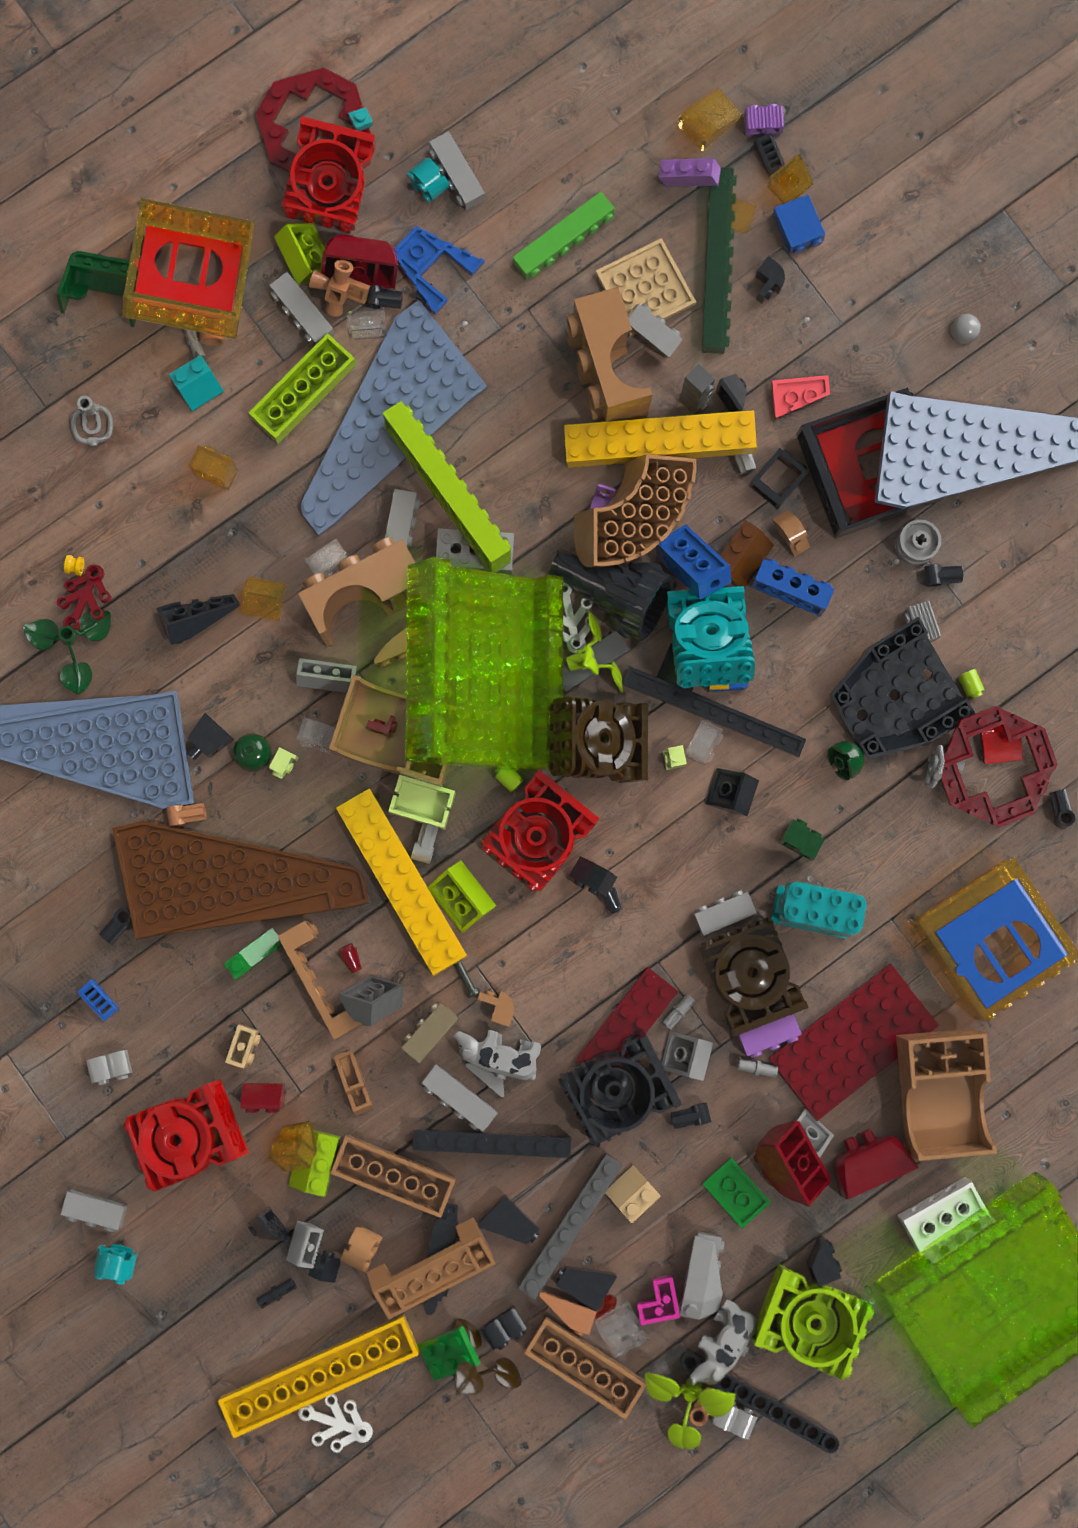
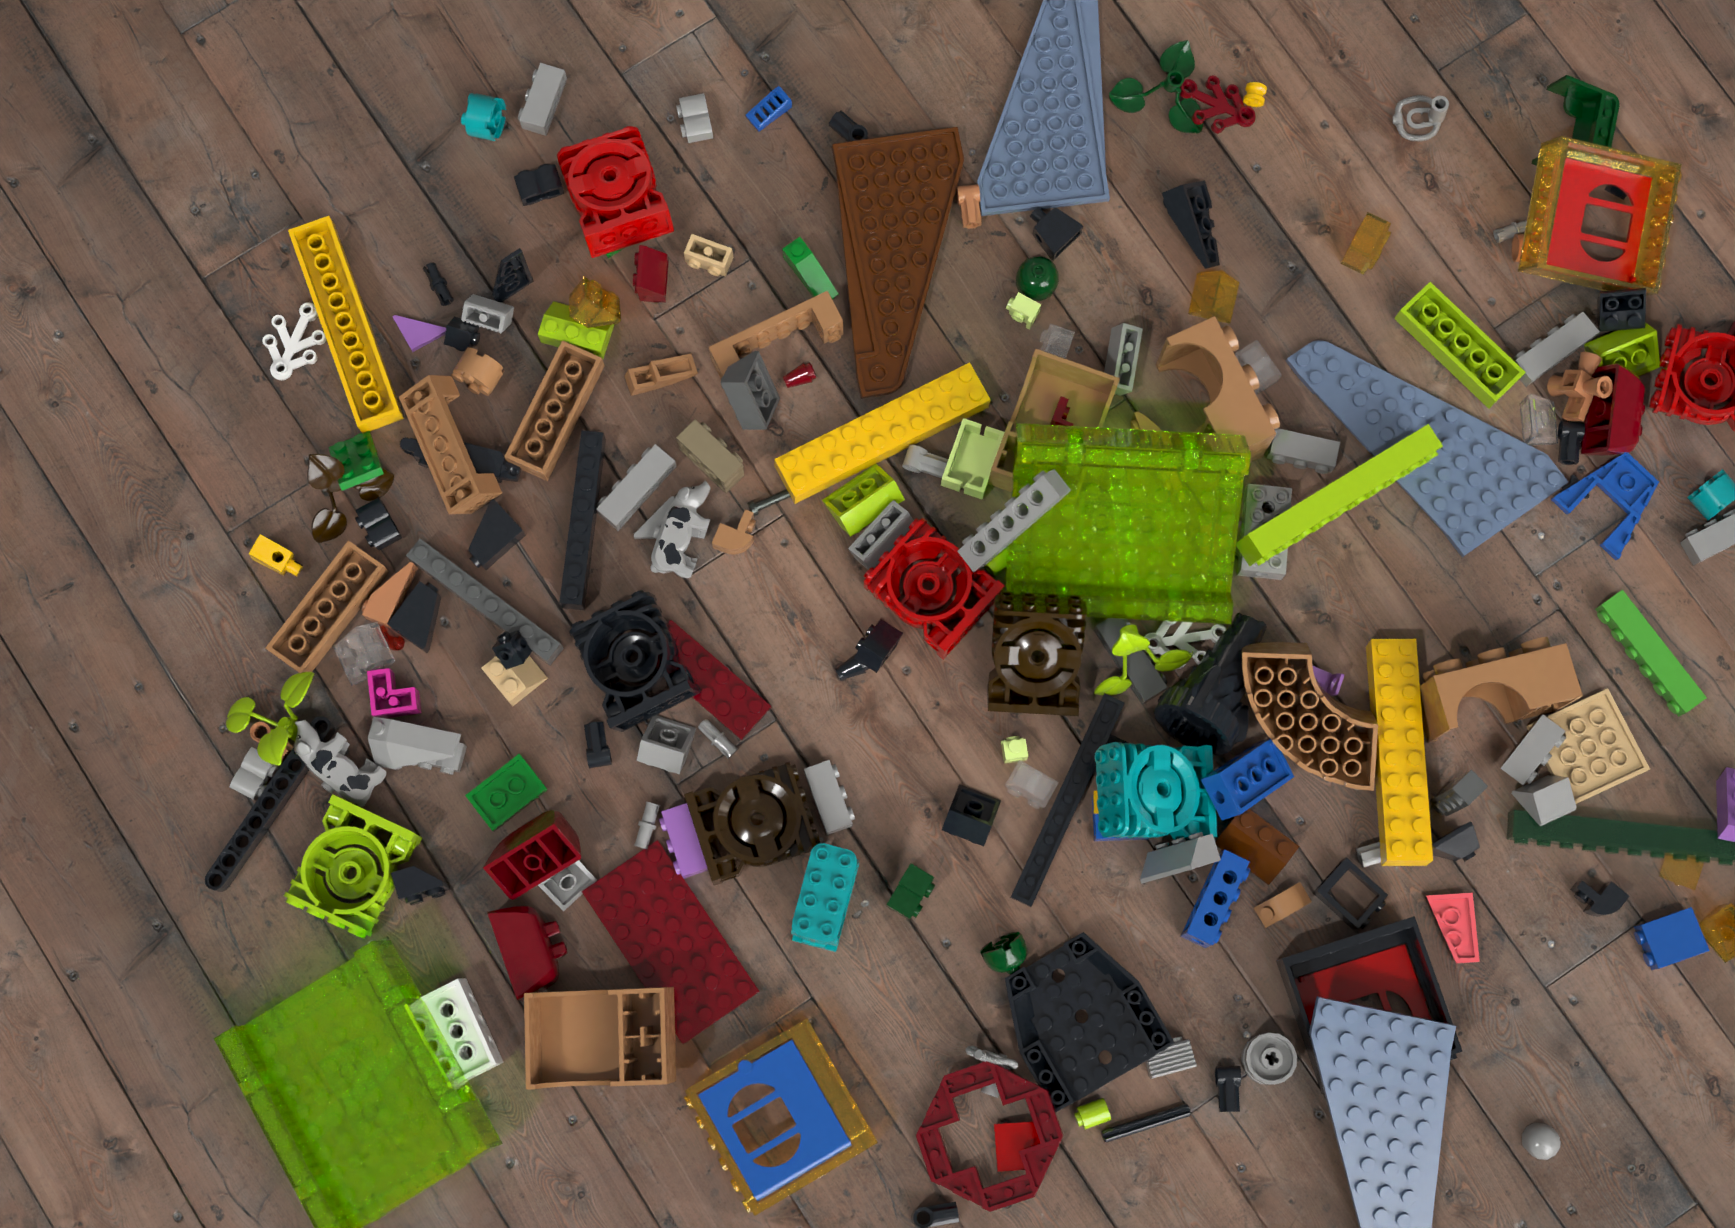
camera: 95 degrees right, 5 degrees down
(177, 1207) = (538, 184): none -> black brick
(196, 383) = (1466, 230): teal slope -> none
(269, 253) = (1621, 309): none -> black slope
(323, 1308) = (417, 332): none -> medium lavender tile
(489, 760) = (1052, 489): none -> light grey brick
(494, 878) = (881, 535): none -> light grey brick
(538, 1428) = (266, 553): none -> yellow torso
(616, 1196) = (511, 649): none -> black brick
(692, 320) = (1546, 798): none -> light grey slope
(764, 616) = (1179, 857): none -> light grey slope
(974, 641) = (1146, 1123): none -> black axle

